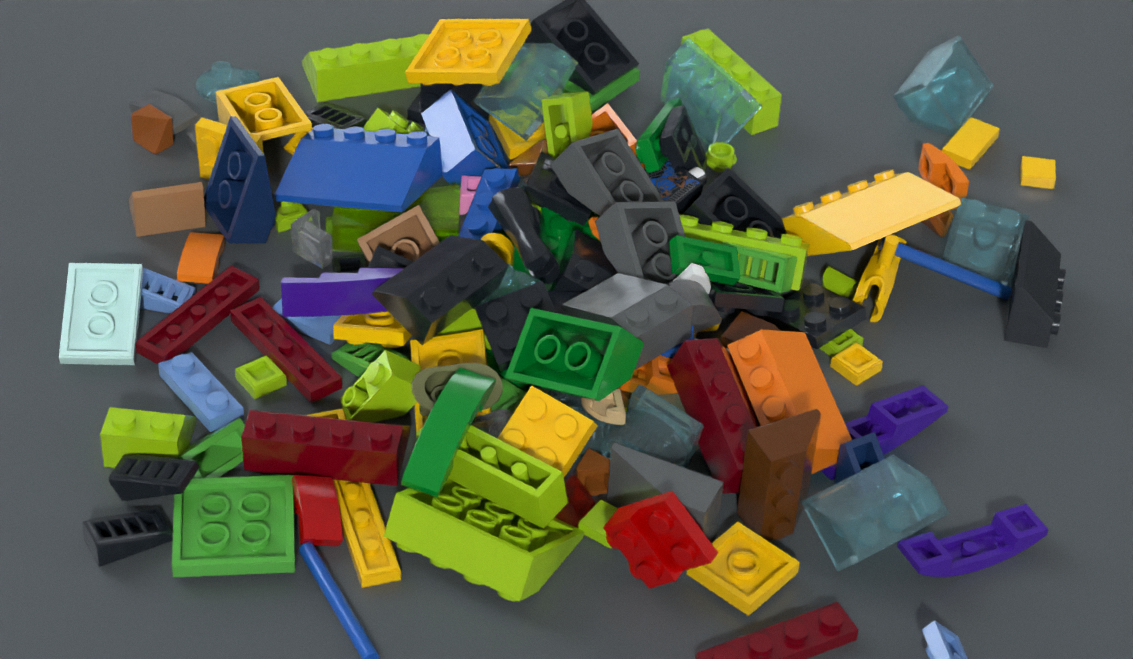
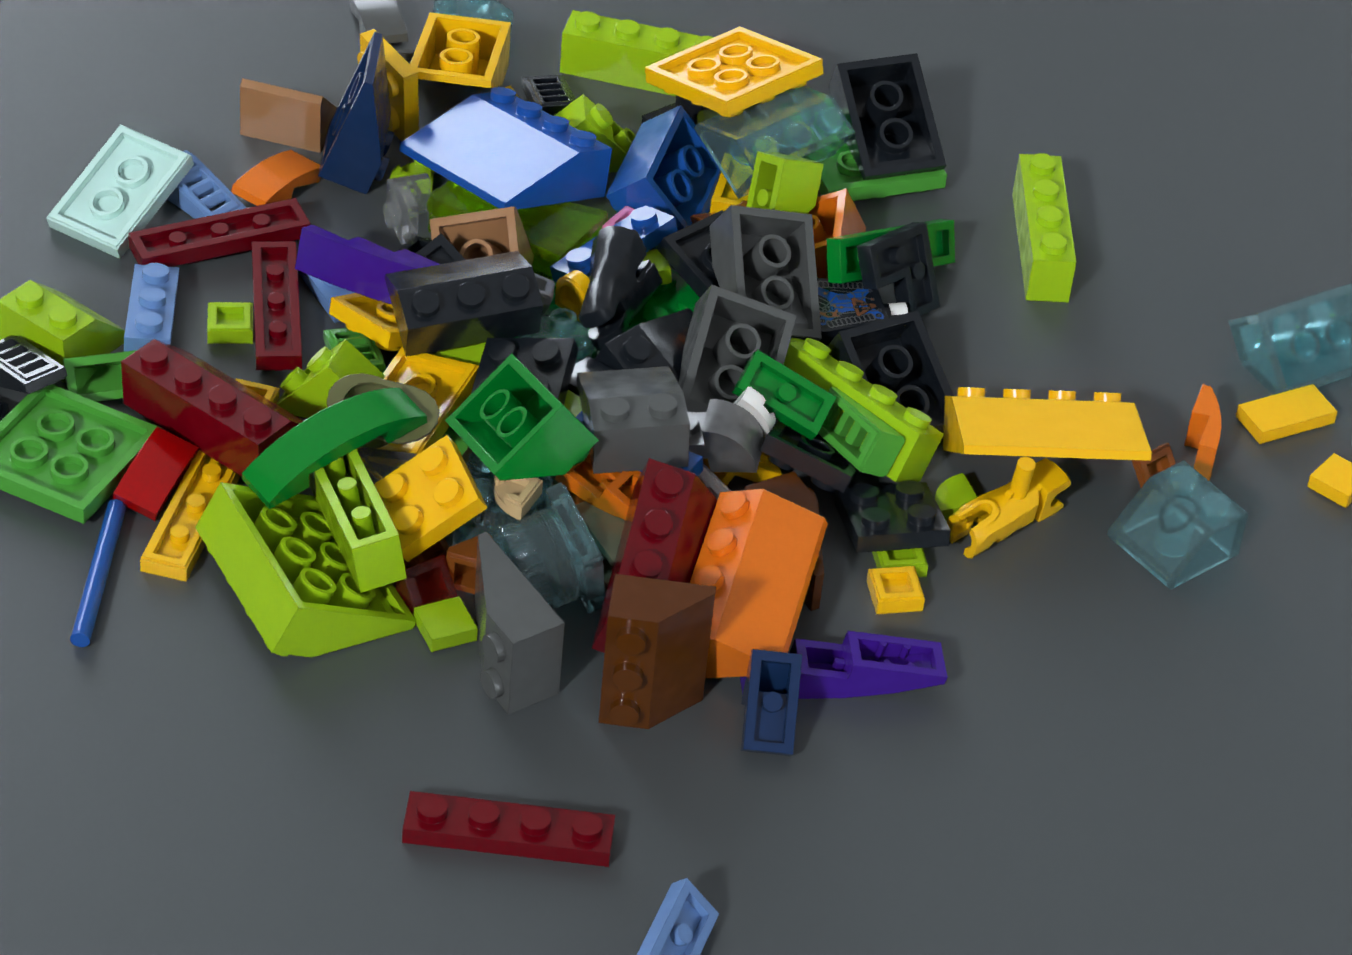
camera: 30 degrees right, 0 degrees up
(152, 129) = (344, 28): dark orange slope -> none
(658, 539) = (453, 654): red plate -> none
(710, 95) = (991, 227): clear light blue slope -> none
(720, 156) = (955, 306): lime plate -> none
(745, 569) = (545, 733): yellow plate -> none
(873, 510) = (736, 740): clear light blue slope -> none
(951, 270) = (1097, 534): blue bar -> none
(975, 549) = (827, 838): dark purple slope -> none
(1035, 291) = (1179, 595): black slope -> none

